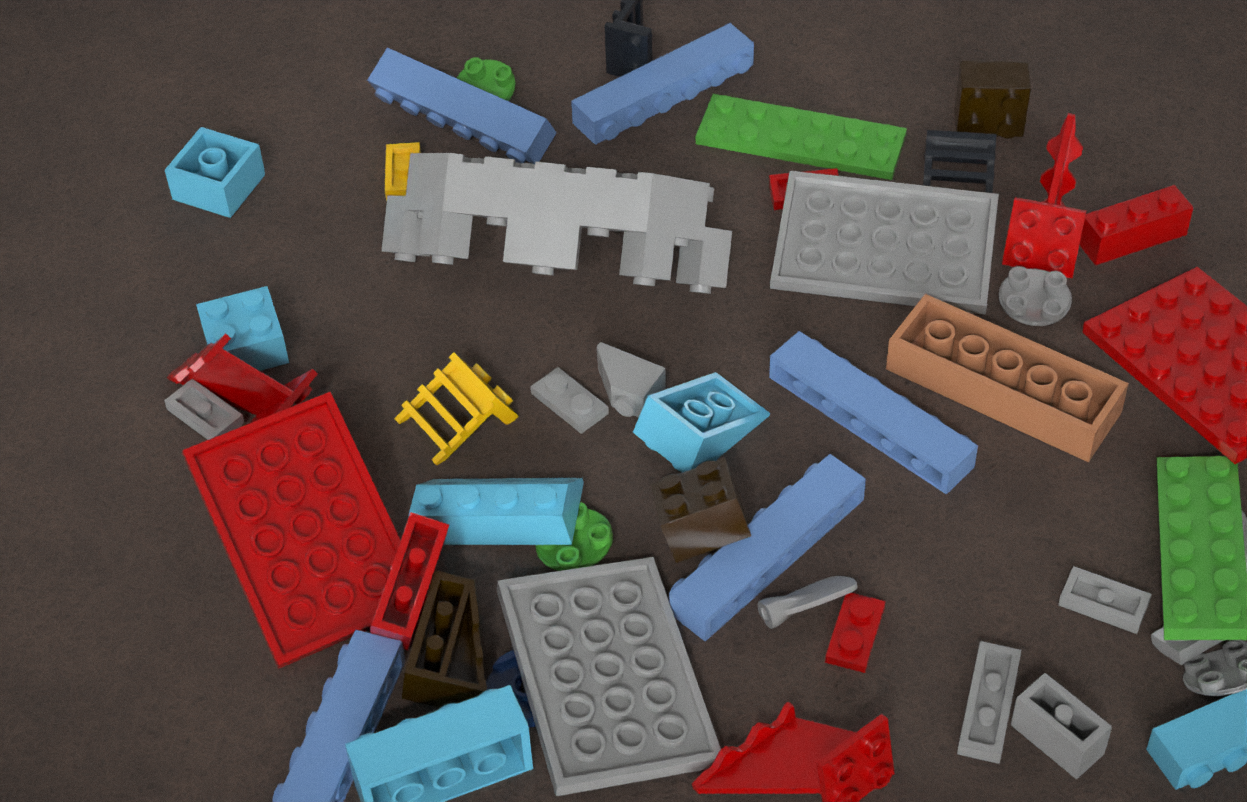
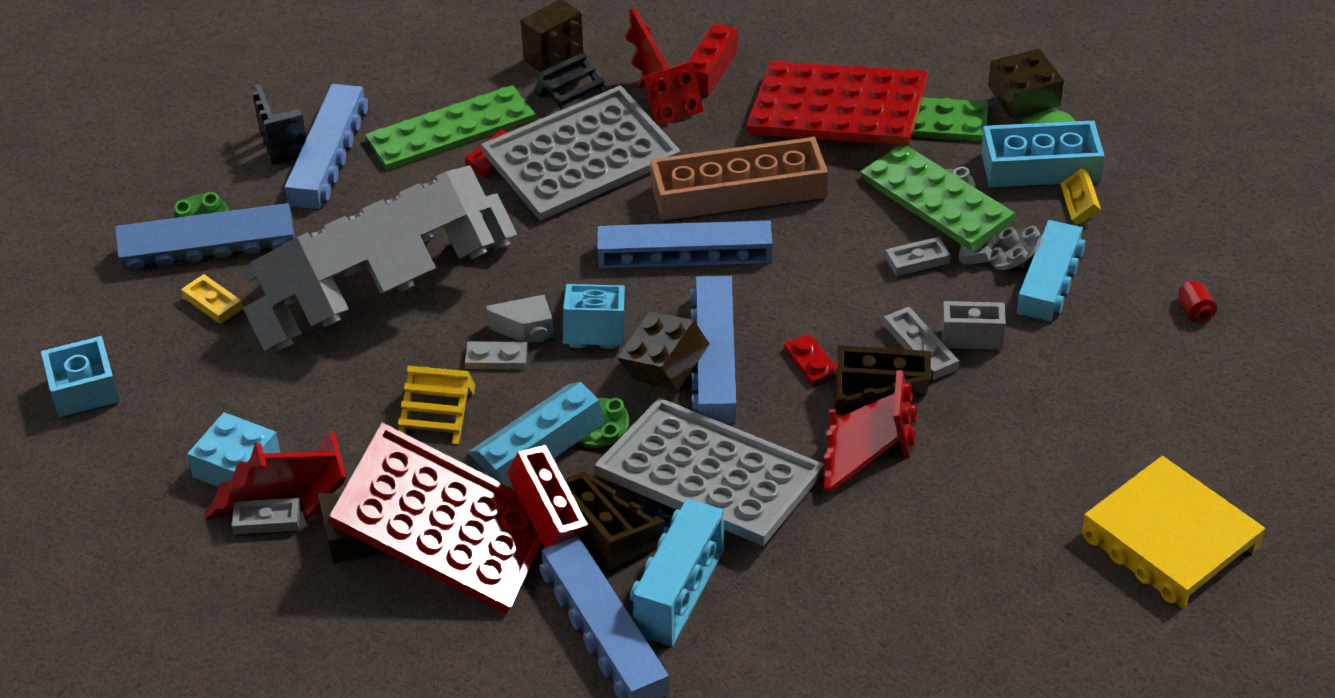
camera: 45 degrees left, 5 degrees down
(778, 609) = (765, 362): light grey piece -> none
(871, 685) = (869, 374): none -> dark brown wedge
(1035, 296) = (698, 131): light grey dish -> none

